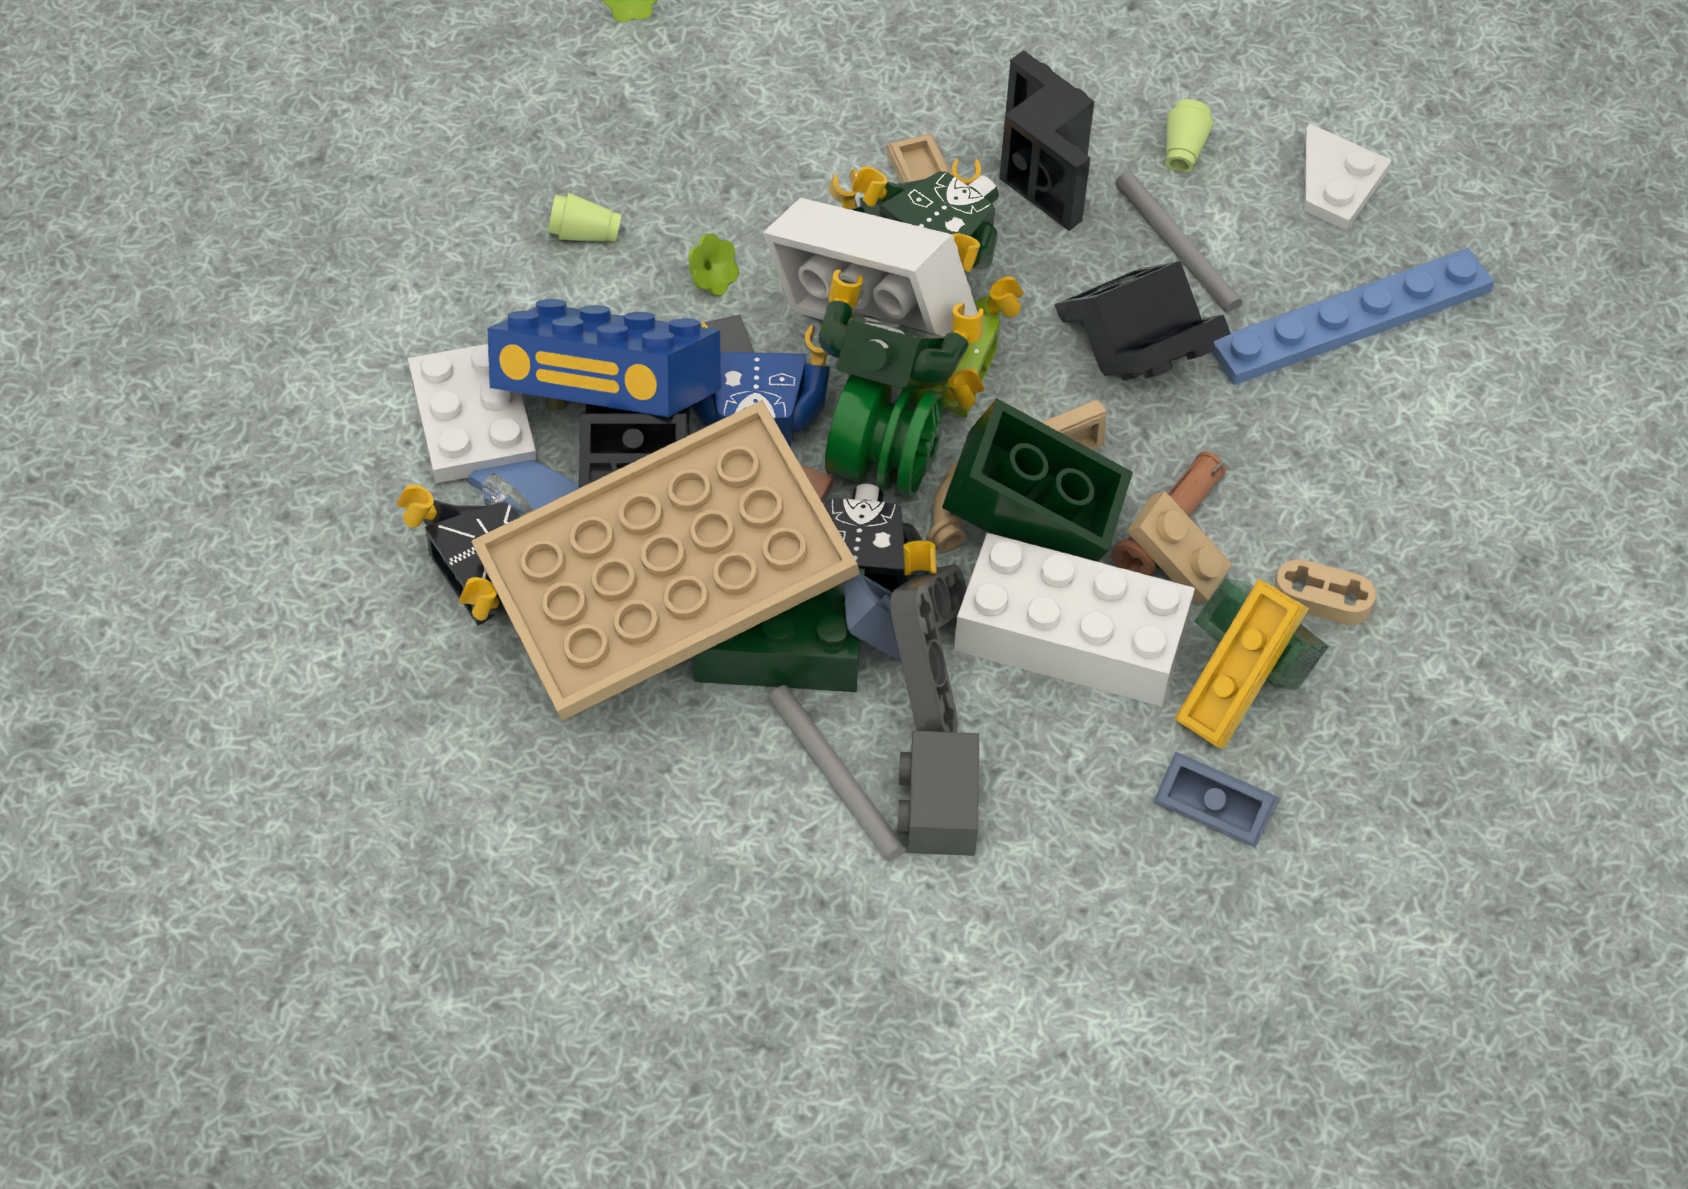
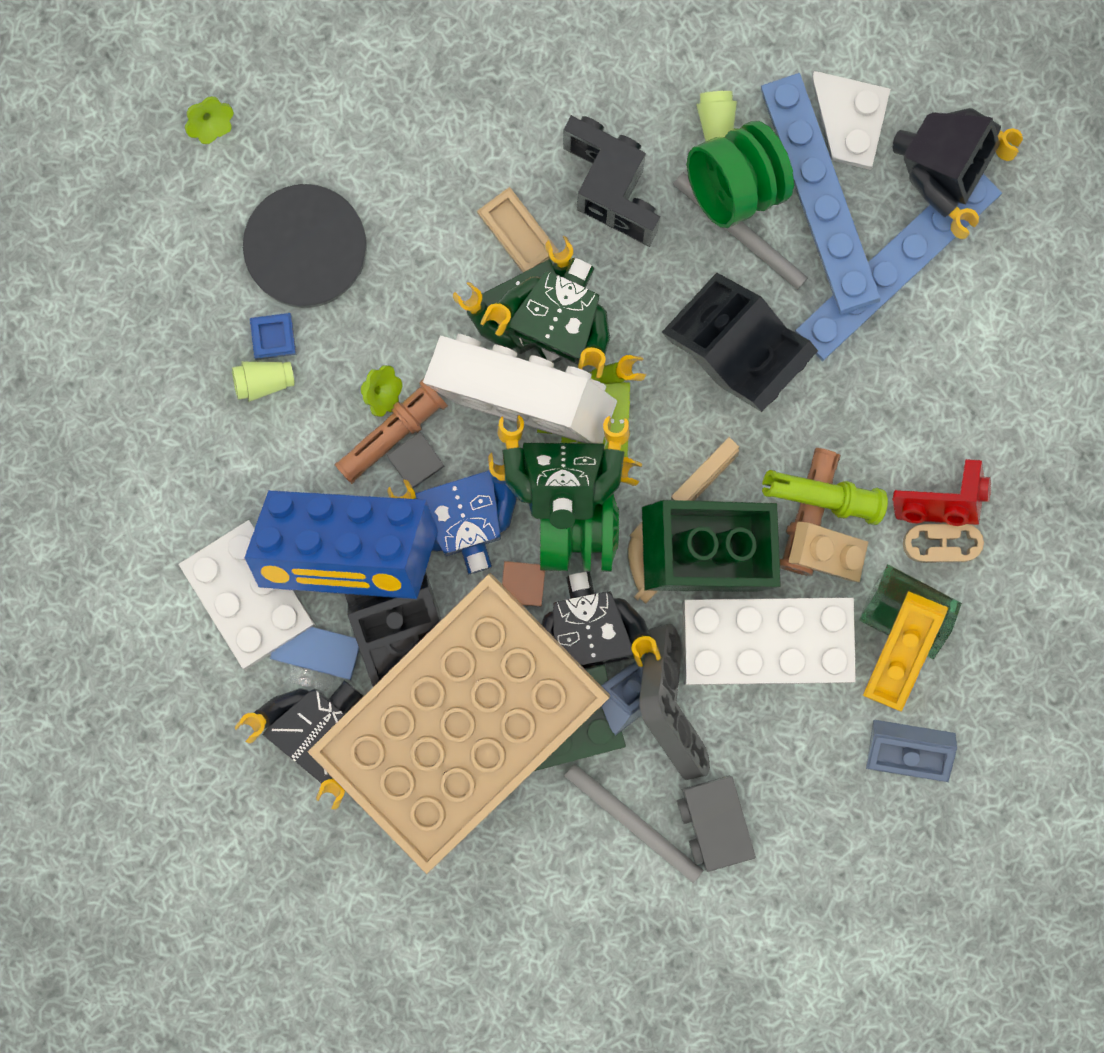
camera: 15 degrees left, 30 degrees up
(615, 190) = (273, 336): none -> blue tile
(684, 126) = (304, 245): none -> black tile
(727, 298) = (405, 418): none -> nougat pin
(1195, 166) = (740, 174): none -> green wheel
(1213, 500) = (842, 498): none -> lime pin
(1281, 227) = (820, 194): none -> medium blue plate
(1339, 541) = (947, 507): none -> red bracket
(1445, 220) = (950, 158): none -> black torso

